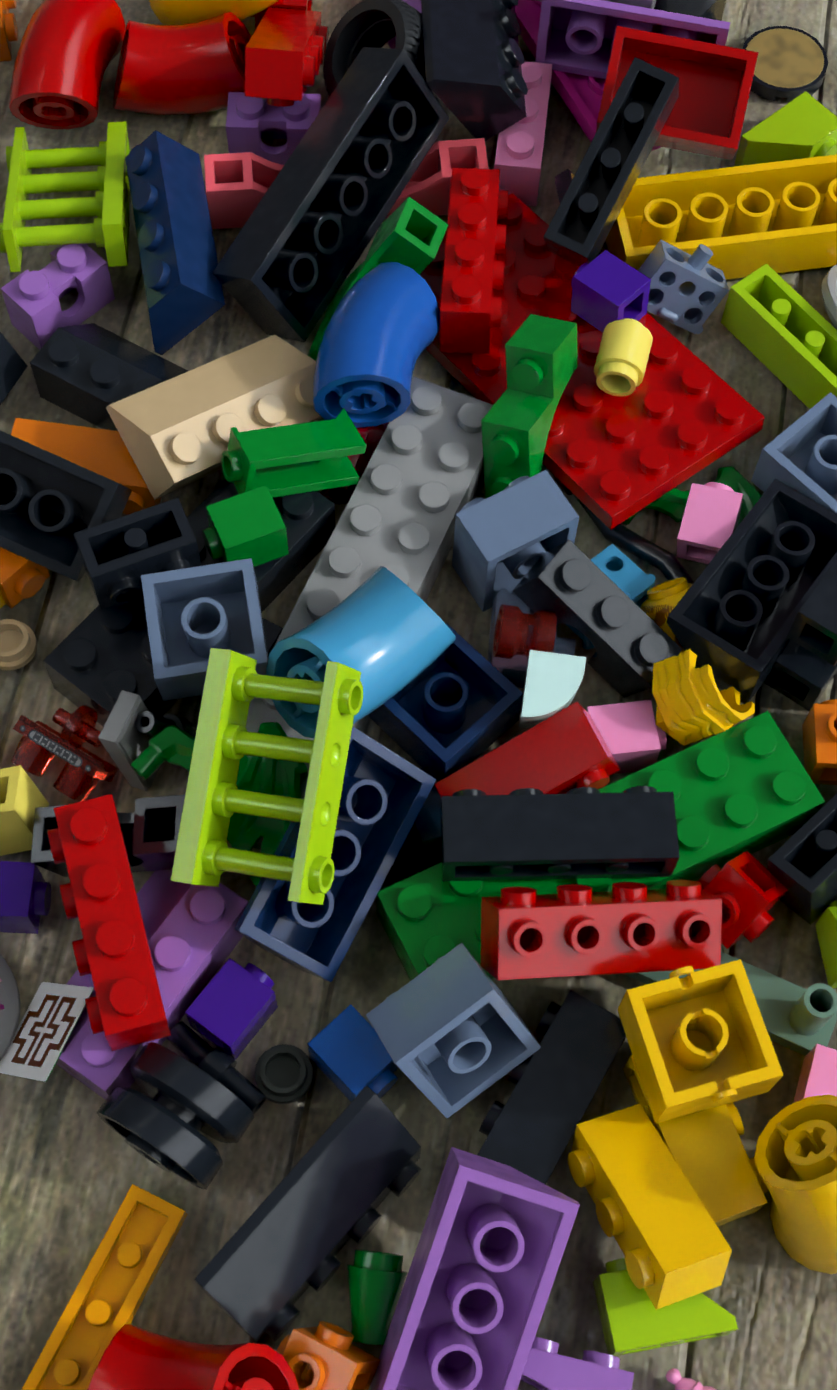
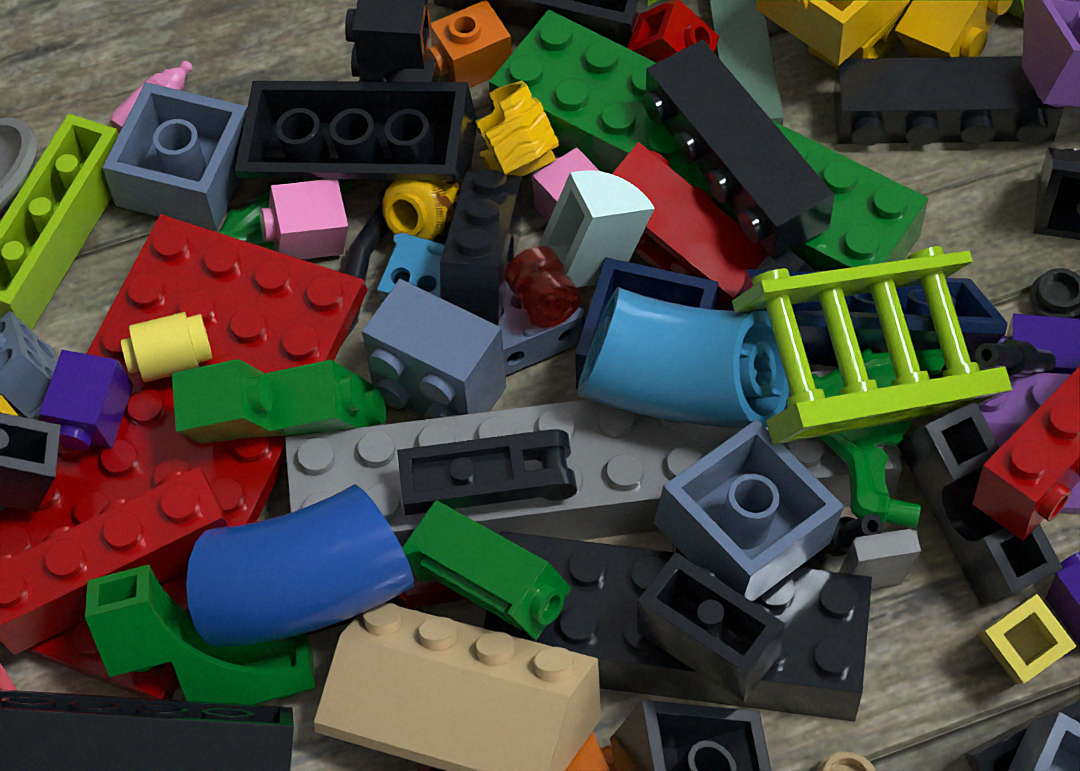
camera: 115 degrees left, 5 degrees down
(82, 766) = (914, 644): clear red hips -> none
(209, 926) = (1017, 356): none -> black bar
(246, 528) = (606, 558): green brick -> none
(353, 1055) = (1008, 247): blue brick -> none
(374, 497) = (486, 471): none -> black plate
(452, 1031) = (949, 158): sand blue brick -> none
(600, 931) = (801, 97): red brick -> none

